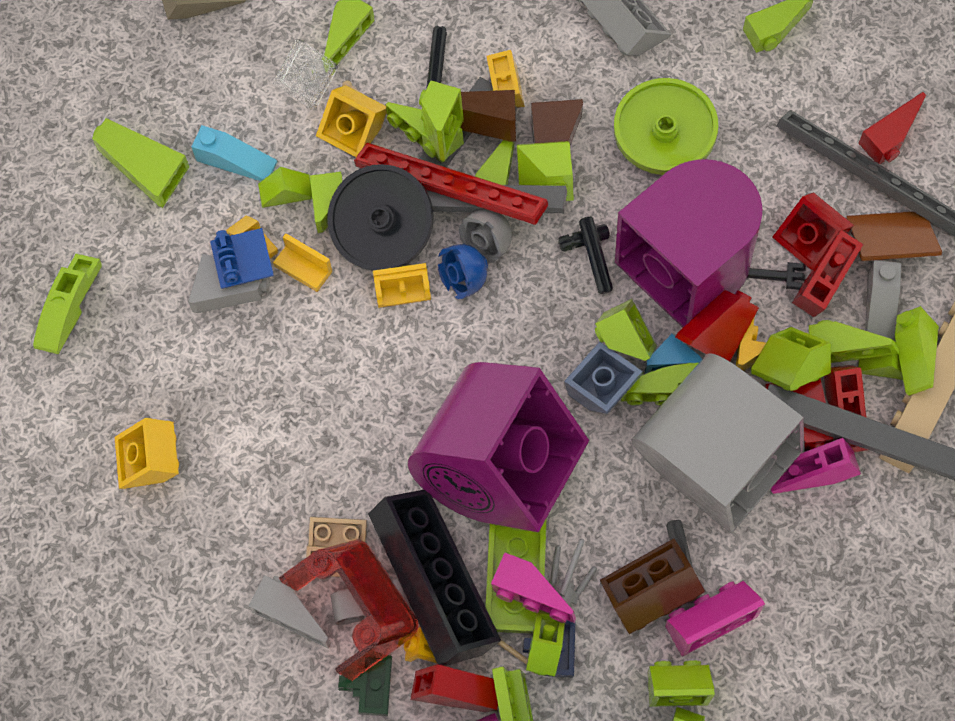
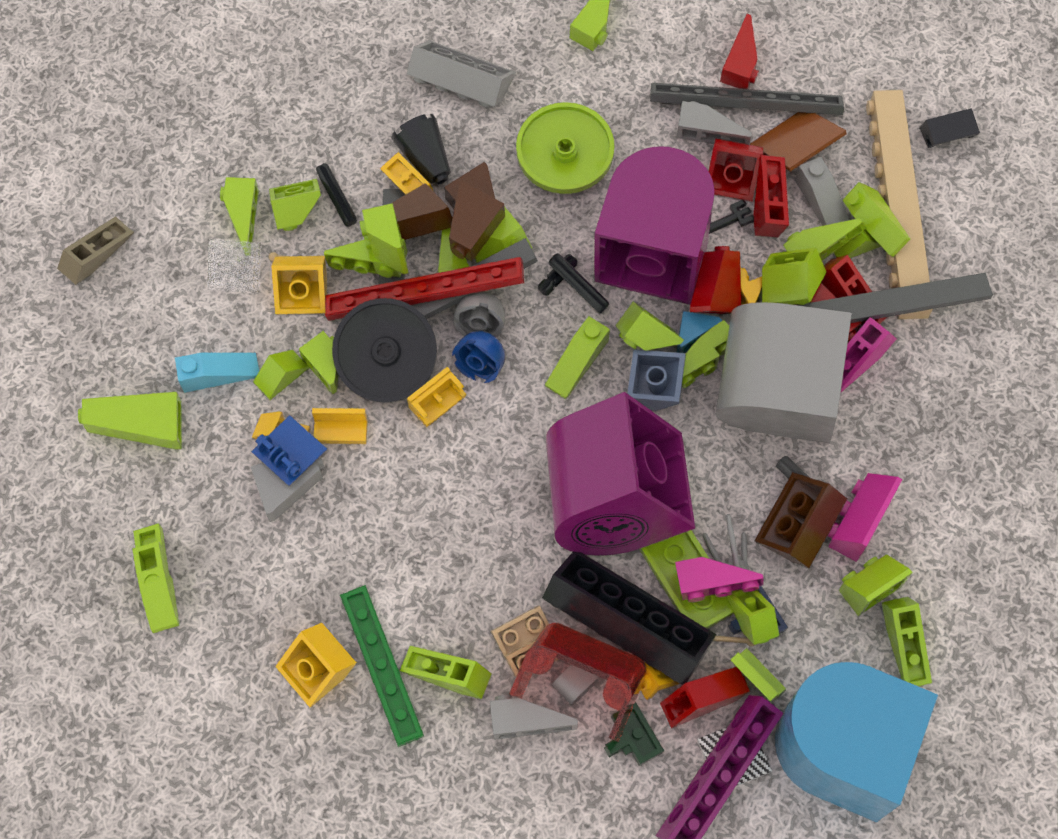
camera: 35 degrees left, 0 degrees up
(200, 490) = (382, 666): none -> green tile
(249, 528) = (447, 671): none -> lime slope
(390, 45) = (293, 203): none -> lime slope
(529, 145) = (473, 221): none -> reddish brown slope
(538, 58) = (424, 148): none -> black cone
(551, 321) = (578, 357): none -> lime slope
(812, 173) = (704, 124): none -> light grey slope

